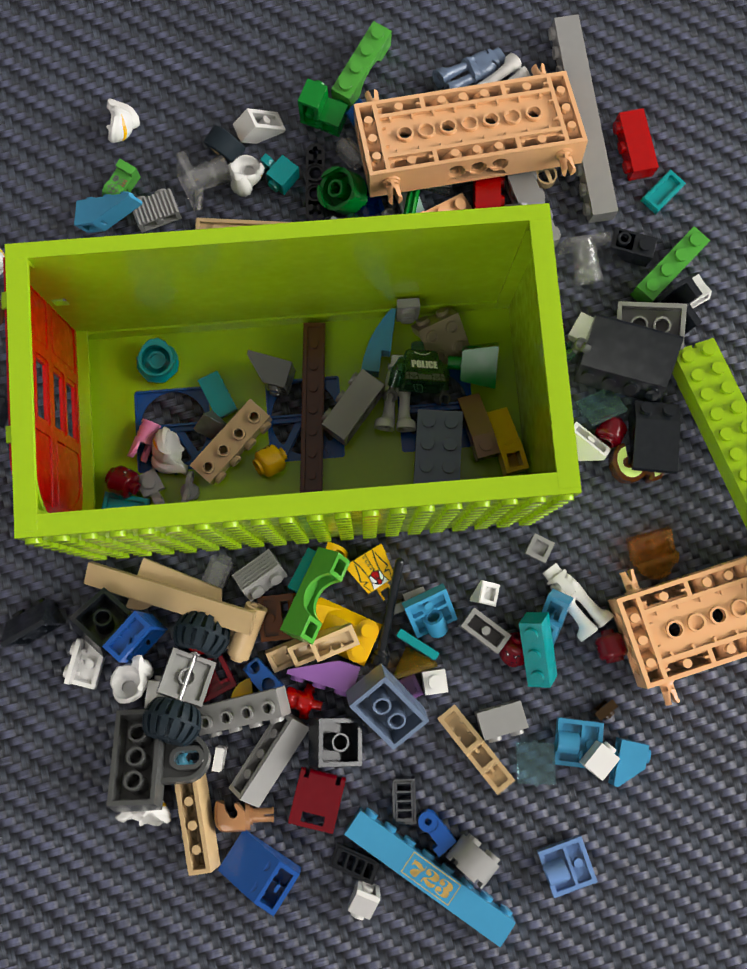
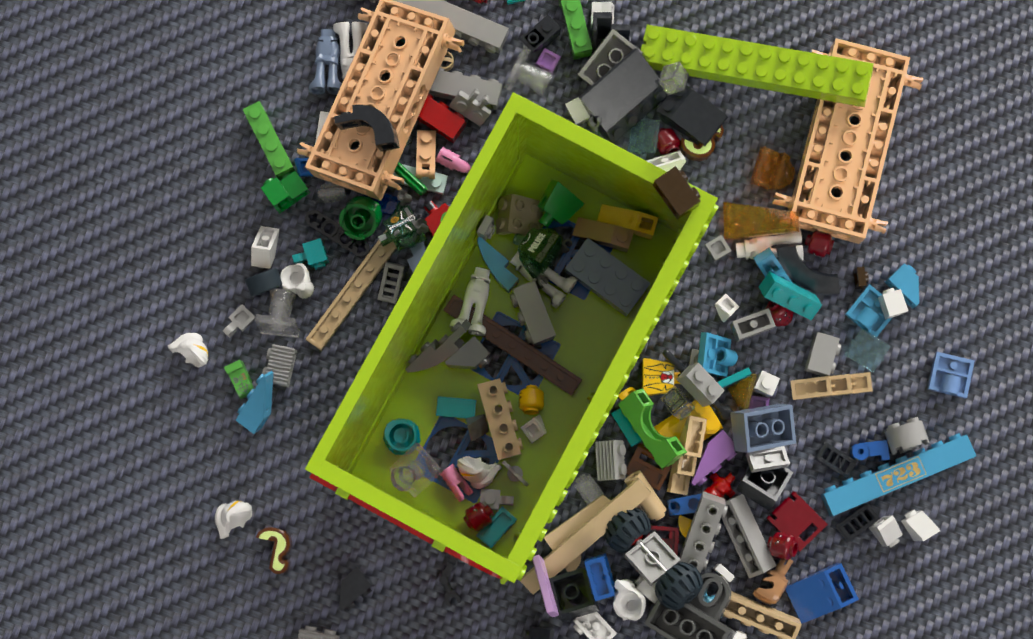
camera: 50 degrees left, 0 degrees up
(91, 588) = (545, 586): none -> lavender tile
(127, 391) = (414, 471): none -> clear plant
(175, 145) = (241, 319): none -> light grey plate
(245, 482) = (534, 429): none -> white slope
(259, 339) = (440, 350): none -> dark grey slope
(281, 802) = (783, 545): none -> dark red head
(339, 341) = (476, 292): none -> white piece
(357, 732) = (768, 459): none -> plate
(358, 605) = (677, 403): none -> clear brick
(389, 615) = (700, 384): none -> light grey brick
(390, 932) = (919, 525): none -> white slope
(435, 146) = (364, 115): none -> black arch
(557, 441) = (677, 192): none -> dark brown brick
(568, 650) = (803, 275): none -> black tile
(590, 567) = (755, 221): none -> clear orange wing
(612, 270) = (547, 60): none -> medium lavender tile
(678, 395) = (673, 78): none -> clear brick

